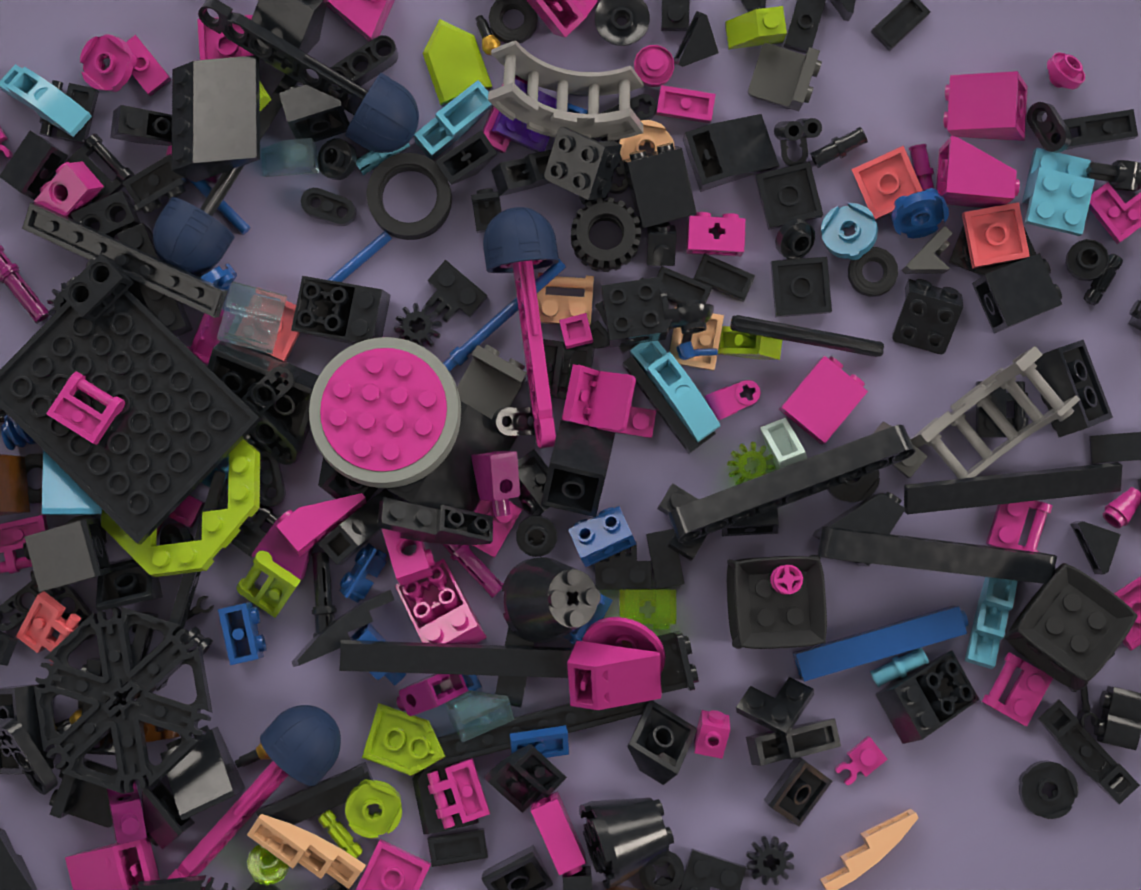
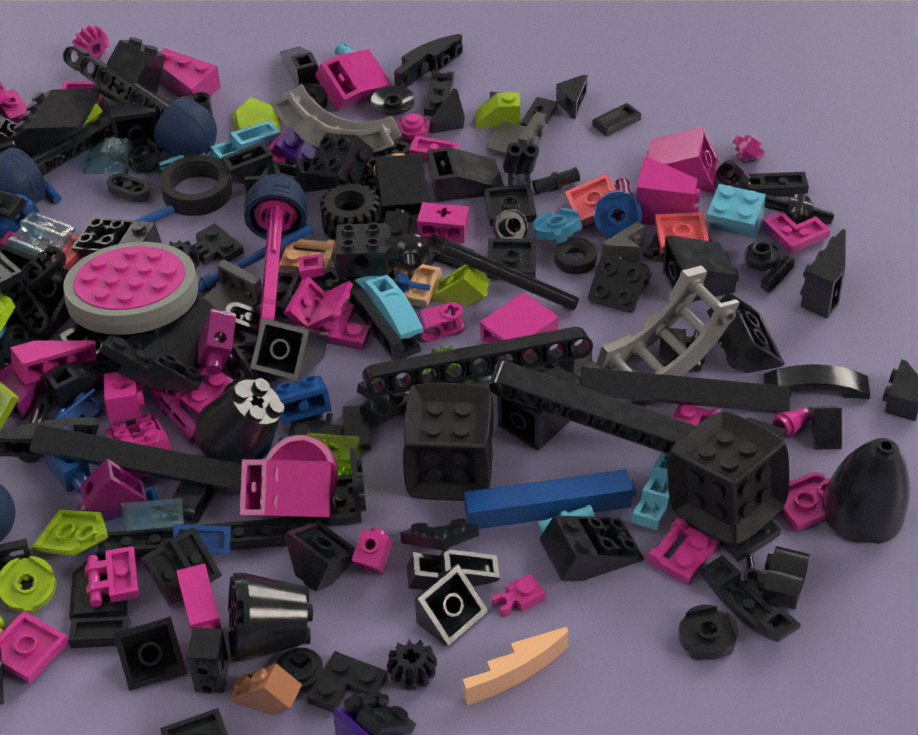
camera: 10 degrees right, 40 degrees down
(792, 579) = (454, 393): dark pink wheel -> none

